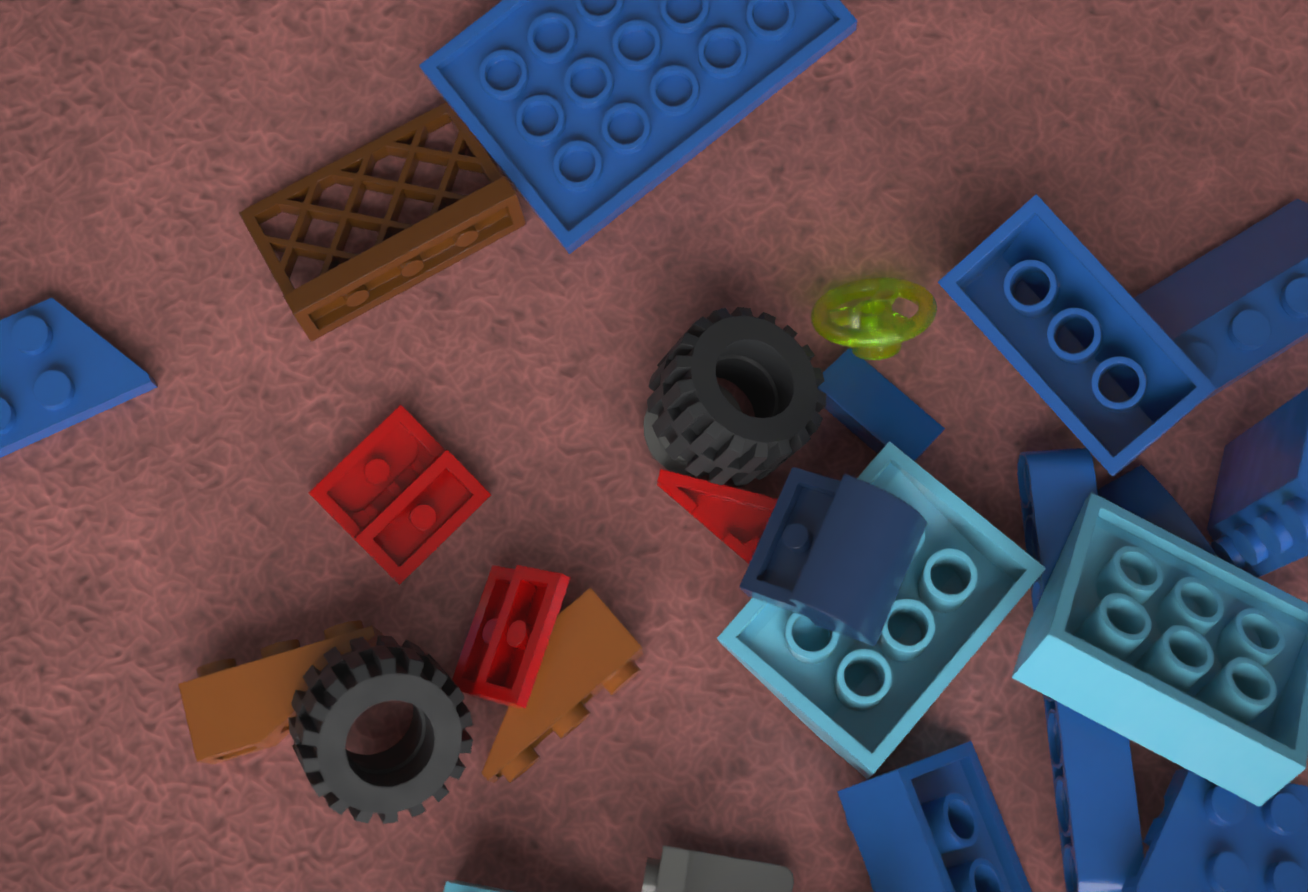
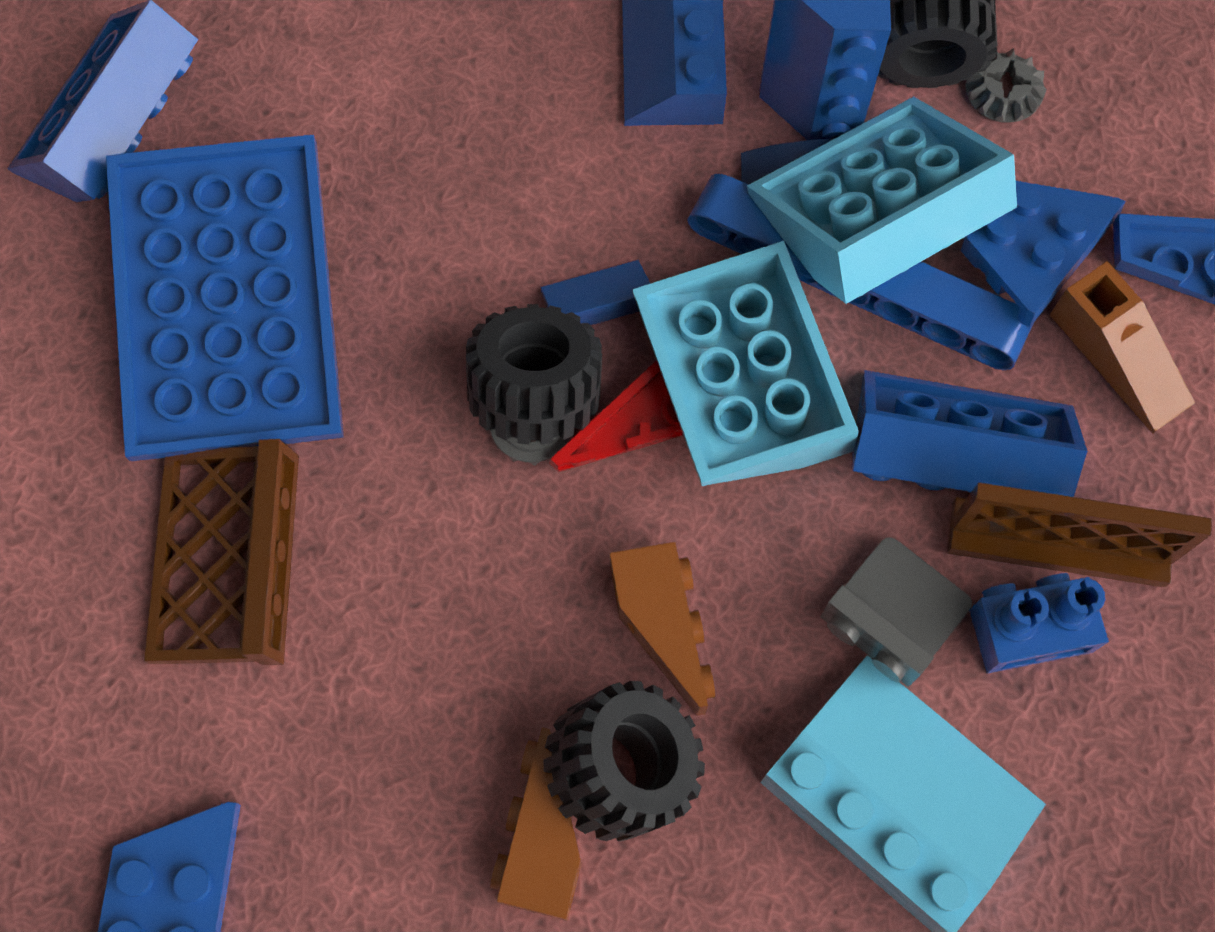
camera: 60 degrees left, 5 degrees down
(399, 494) = (447, 661): red slope -> none
(510, 634) = (610, 626): red slope -> none
(835, 553) = (692, 363): dark blue brick -> none
(874, 327) = (538, 259): clear neon green piece -> none
(1076, 336) = (635, 131): blue slope -> none

